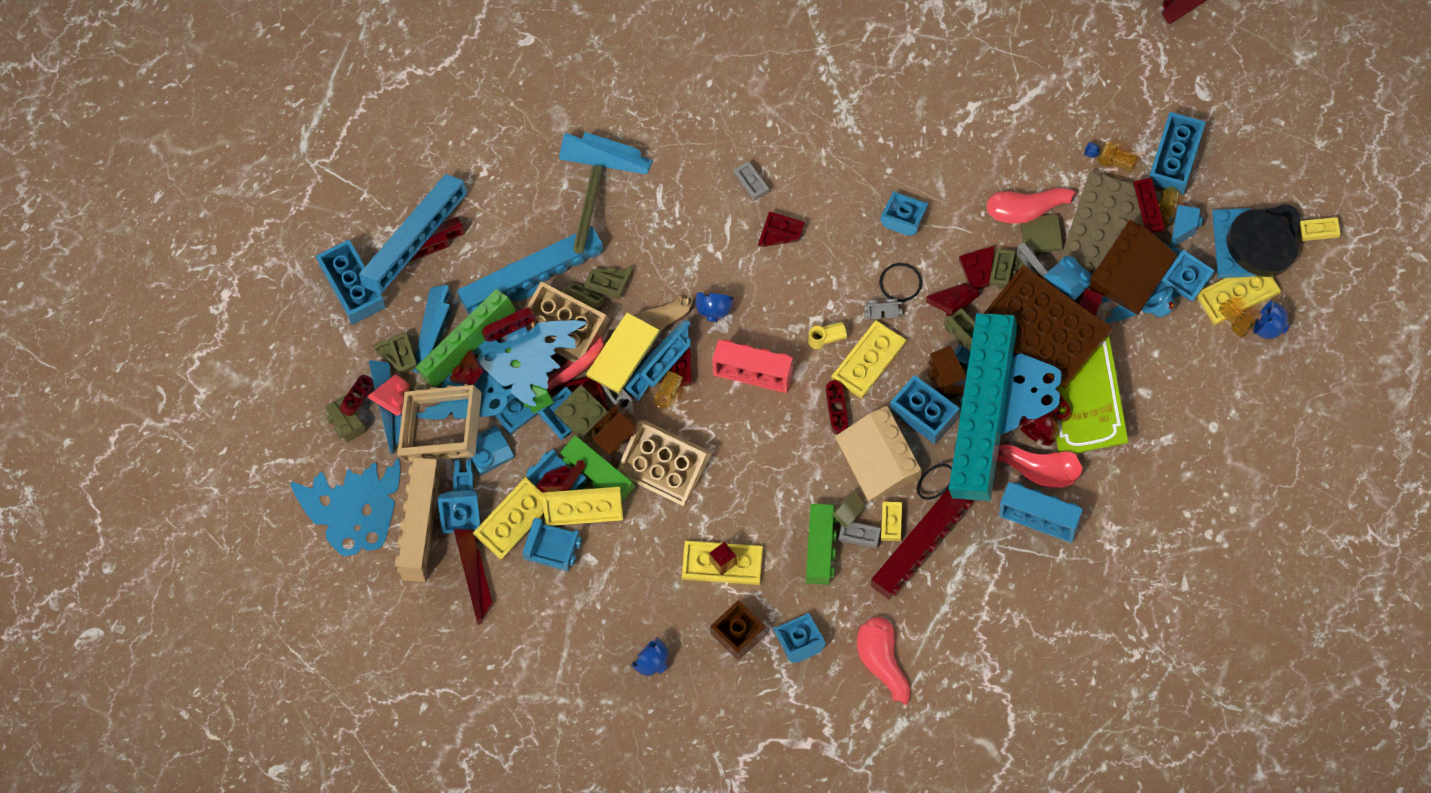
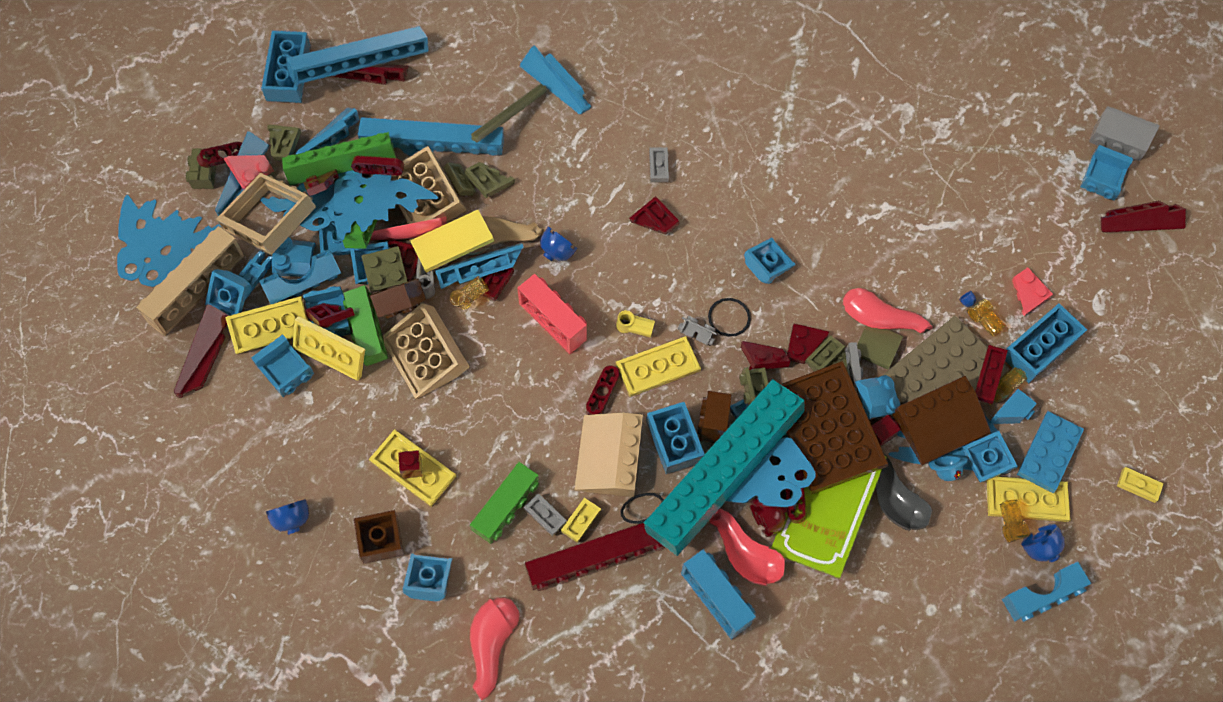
camera: 25 degrees right, 0 degrees up
(523, 443) = (322, 268): none -> dark azure arch
(849, 509) = (550, 486): olive slope -> none
(1139, 112) = (1030, 290): none -> coral wing
(1140, 356) = (899, 503): none -> dark grey animal
(1263, 241) = (1080, 465): black piece -> none
(1282, 377) = (1024, 602): none -> dark azure arch

